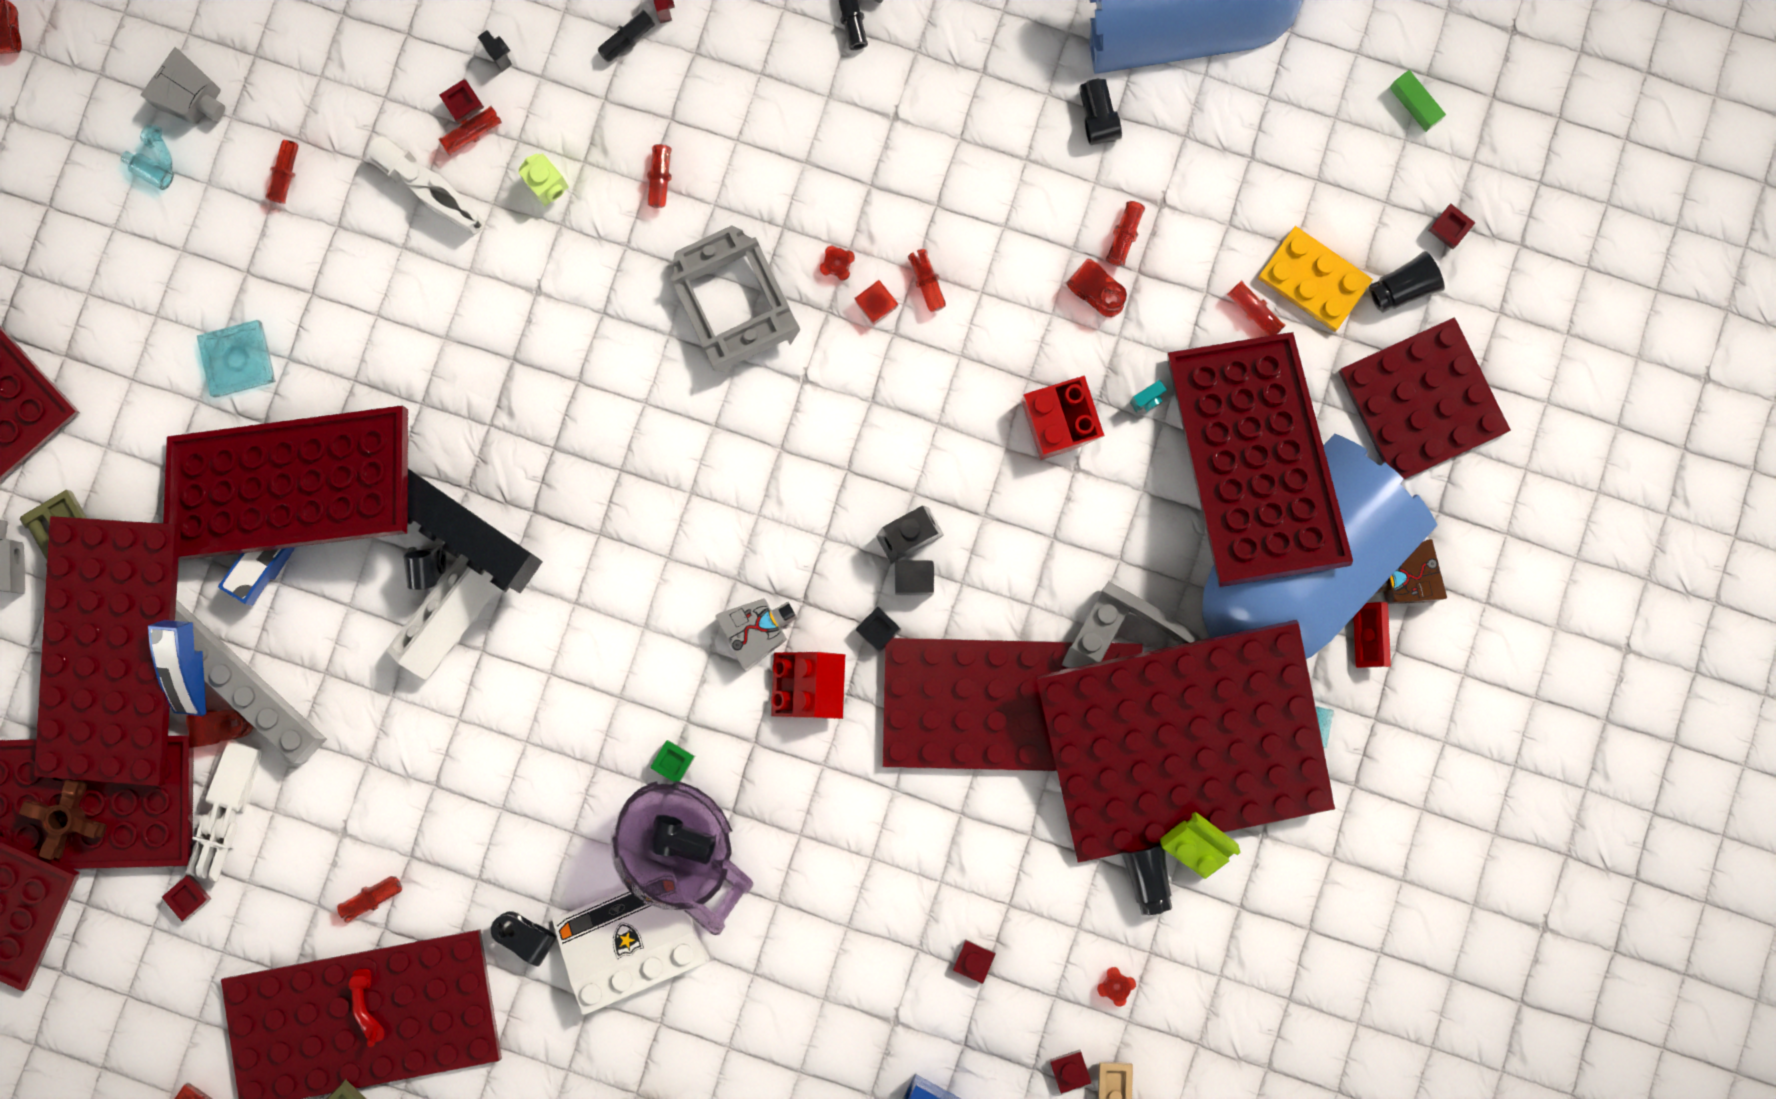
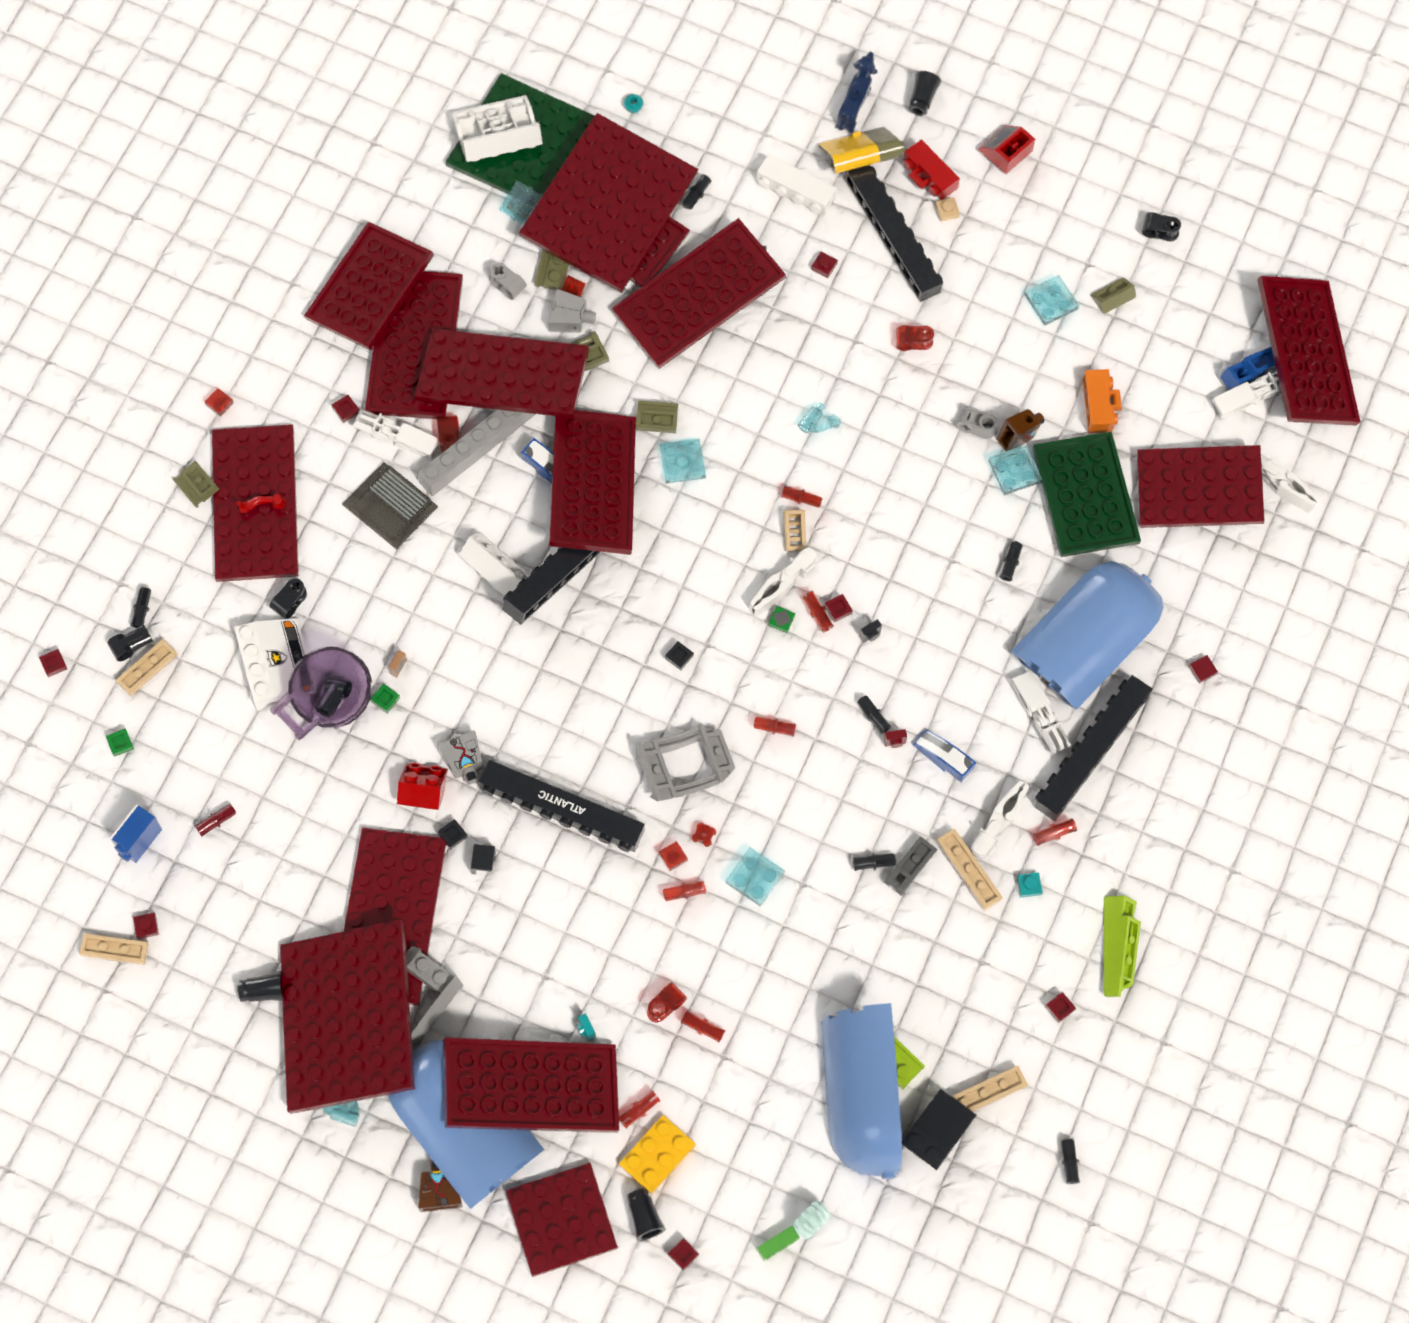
camera: 90 degrees right, 15 degrees down
(50, 817) = (403, 349): copper pin -> none
(163, 404) = (657, 416): none -> olive plate
(178, 666) = (485, 411): slope -> none
(183, 90) = (861, 442): light grey torso -> none
(338, 166) = (794, 514): none -> tan slope
(347, 802) = (390, 505): none -> clear smoke piece
(369, 898) = (328, 512): clear red axle -> none
(424, 567) = (529, 557): black piece -> none
(486, 183) = (781, 619): none -> green tile
(542, 178) = (779, 652): yellowish green brick -> none
(560, 327) = (679, 655): none -> black plate
(614, 751) = (397, 663): none -> medium nougat tile
(817, 473) = (561, 806): none -> black brick
(894, 182) = (755, 876): none -> clear light blue plate
(894, 993) = (215, 820): none -> dark red axle
(909, 533) = (513, 859): black torso -> none
(974, 961) = (227, 872): dark red plate -> none
(1062, 417) = (577, 964): red slope -> none
(1101, 121) = (784, 1019): black piece -> none
(1115, 977) = (201, 960): clear red plate -> none
(1200, 845) = (277, 1021): lime plate -> none
(1372, 636) = (401, 1158): red plate -> none
(1385, 53) = (811, 1219): none -> light aqua gear

